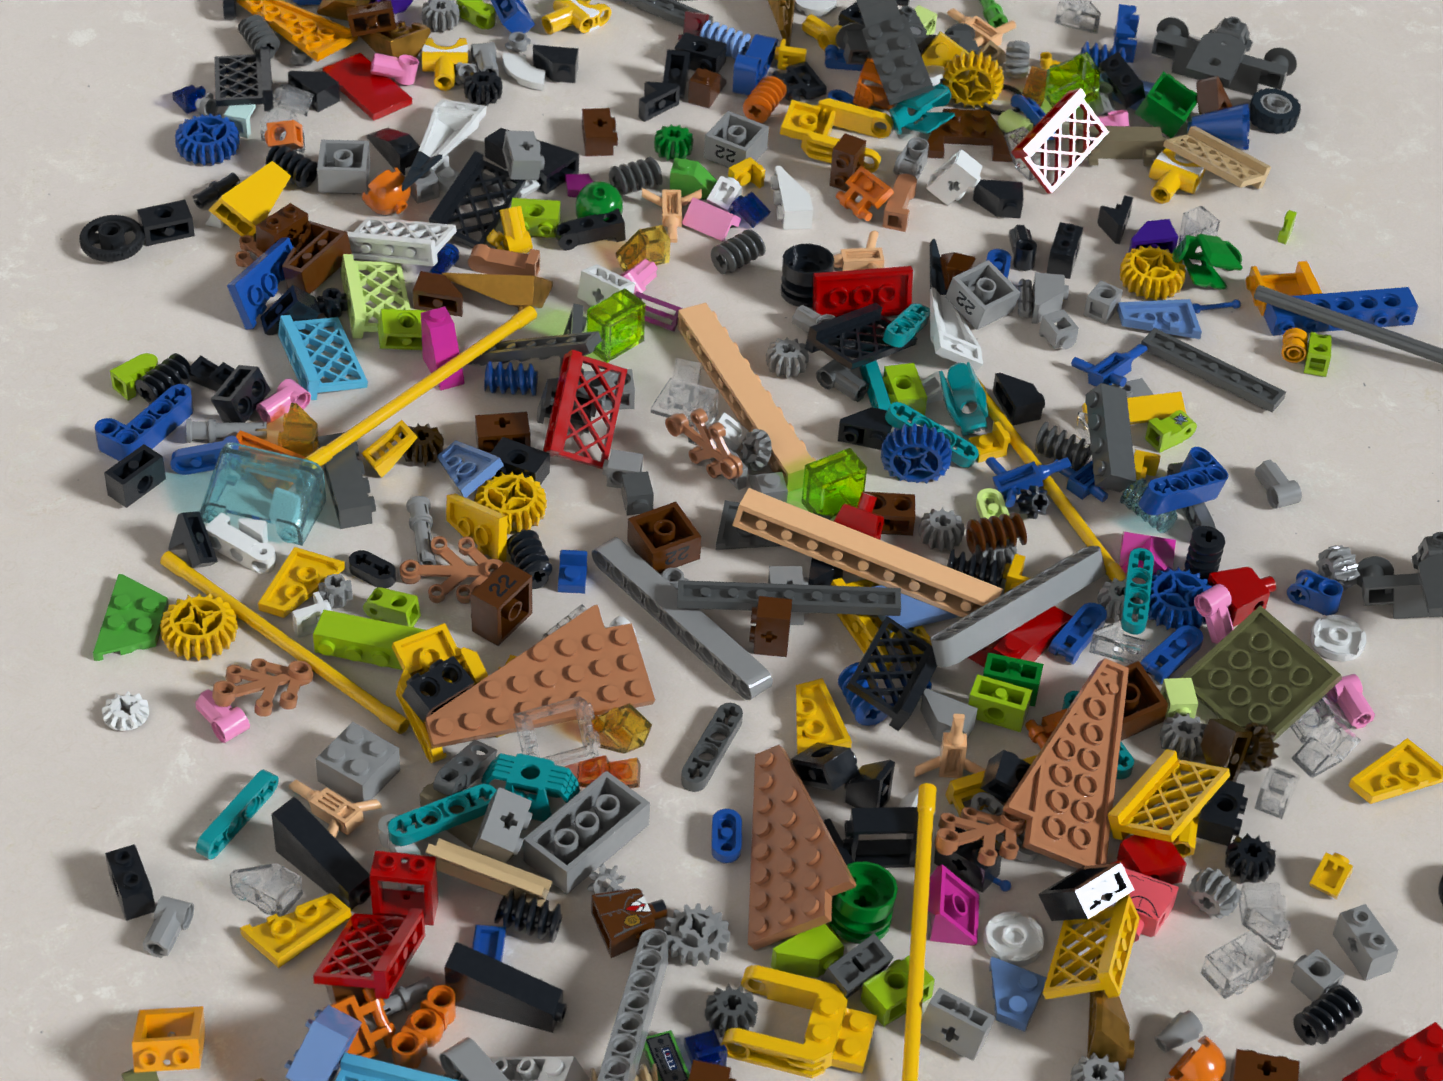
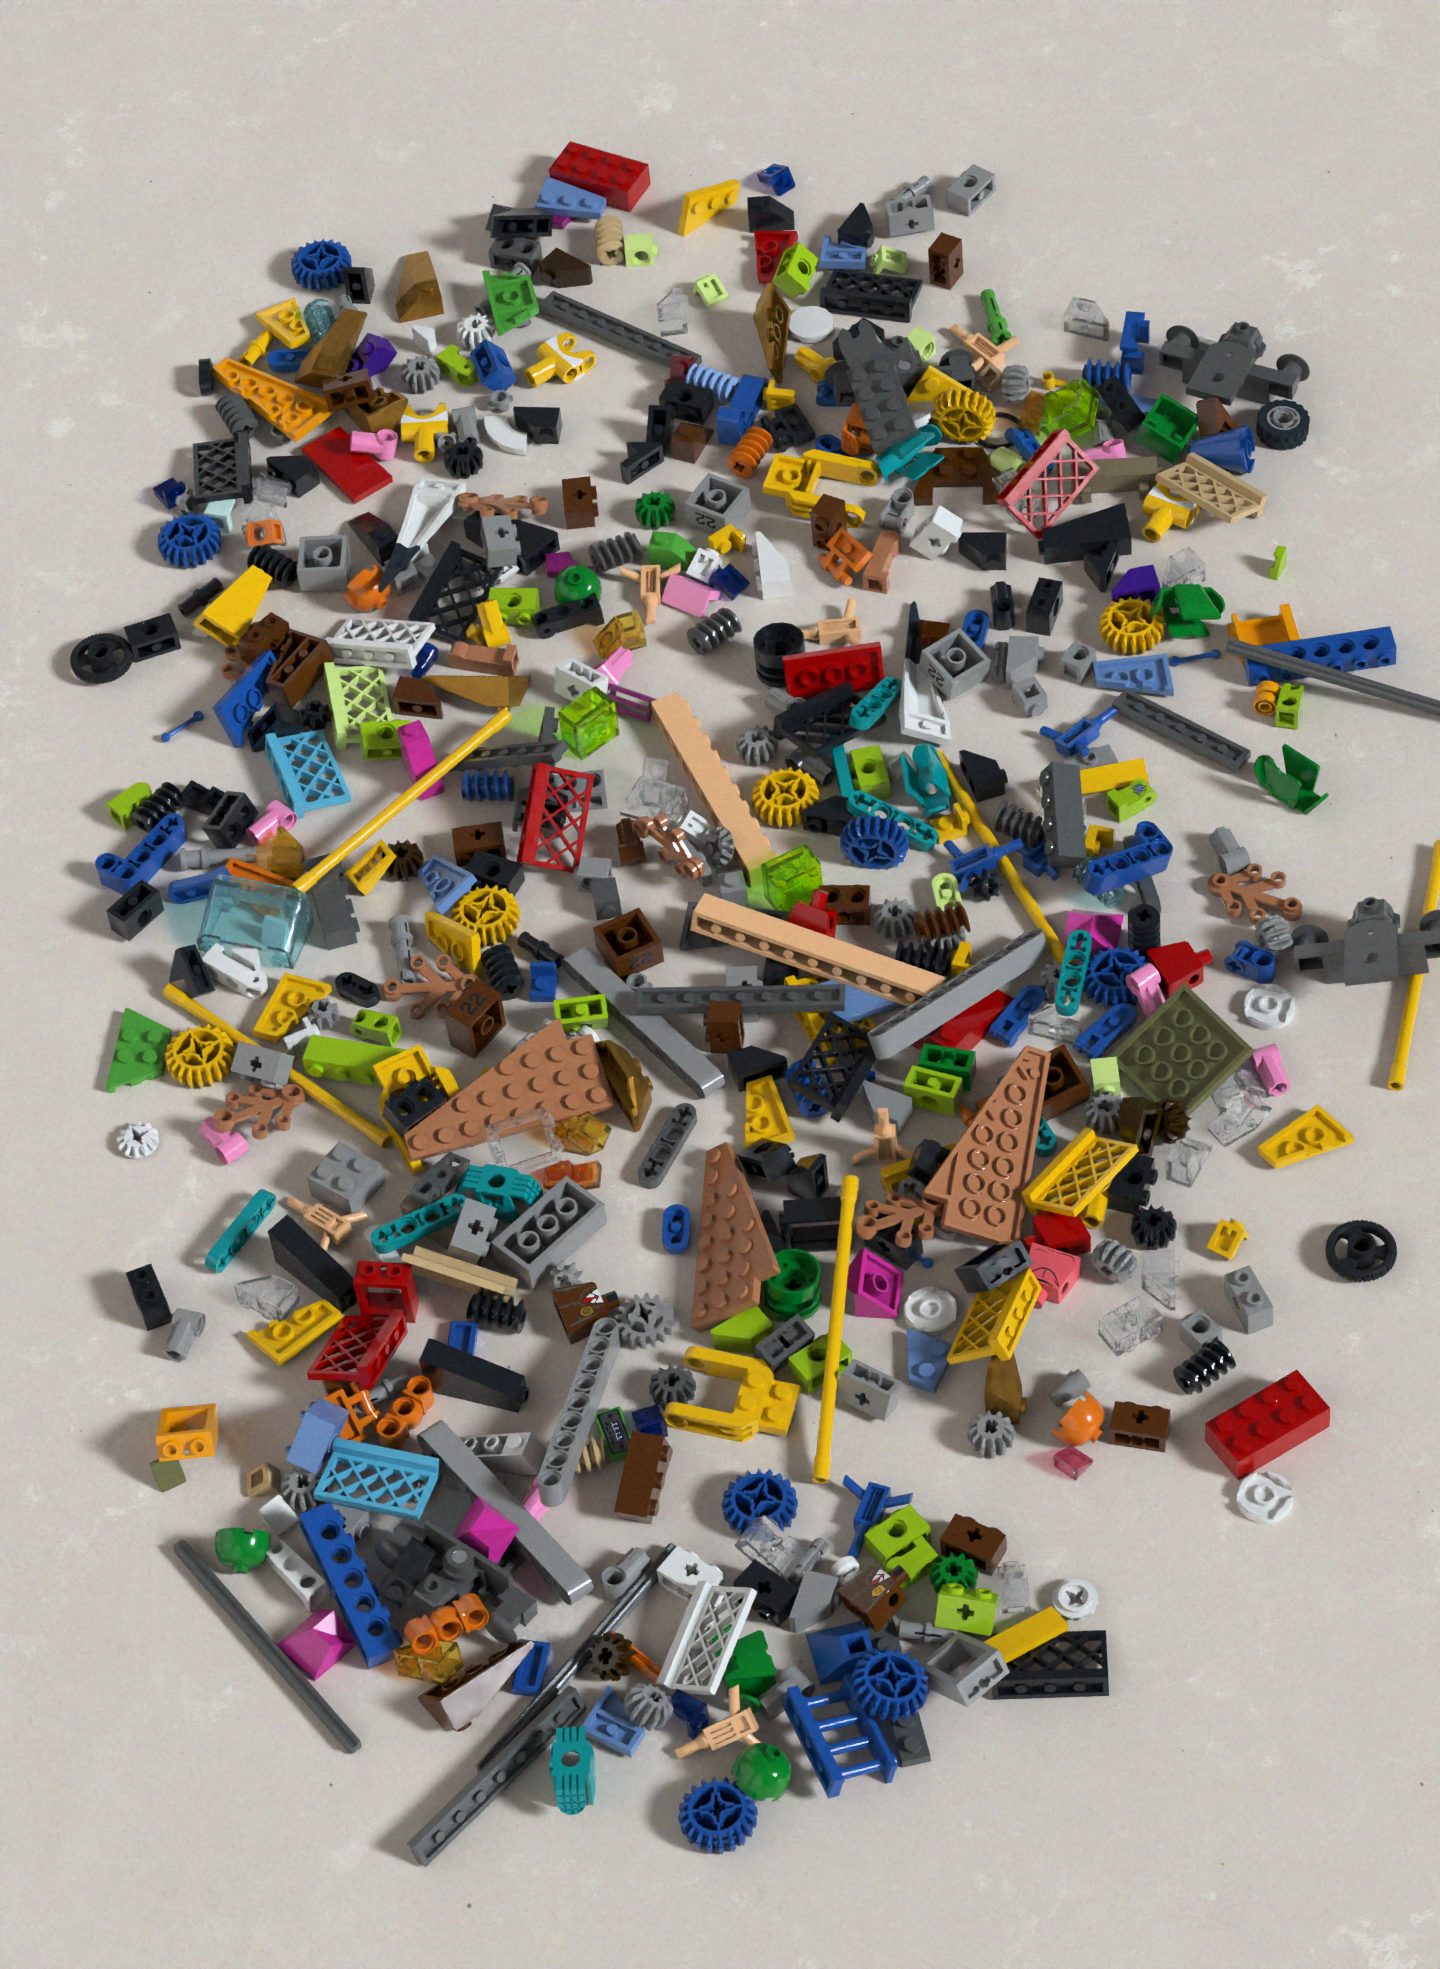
camera: 10 degrees right, 5 degrees up
(208, 298) = (197, 716): none -> blue hinge
(268, 637) = (262, 1063): none -> light grey brick
(492, 122) = (508, 506): none -> nougat plant
(567, 538) = (539, 949): none -> black pin
(617, 601) = (581, 1011): none -> lime brick
(660, 444) = (630, 846): none -> reddish brown piece
(667, 677) = (626, 1082): none -> pearl gold wedge
(804, 665) = (755, 1063): none -> black slope
(818, 407) = (785, 789): none -> yellow gear
(1105, 188) = (1086, 536): none -> black slope
(1278, 518) = (1290, 908): none -> nougat plant
(1331, 421) = (1294, 787): none -> green piece

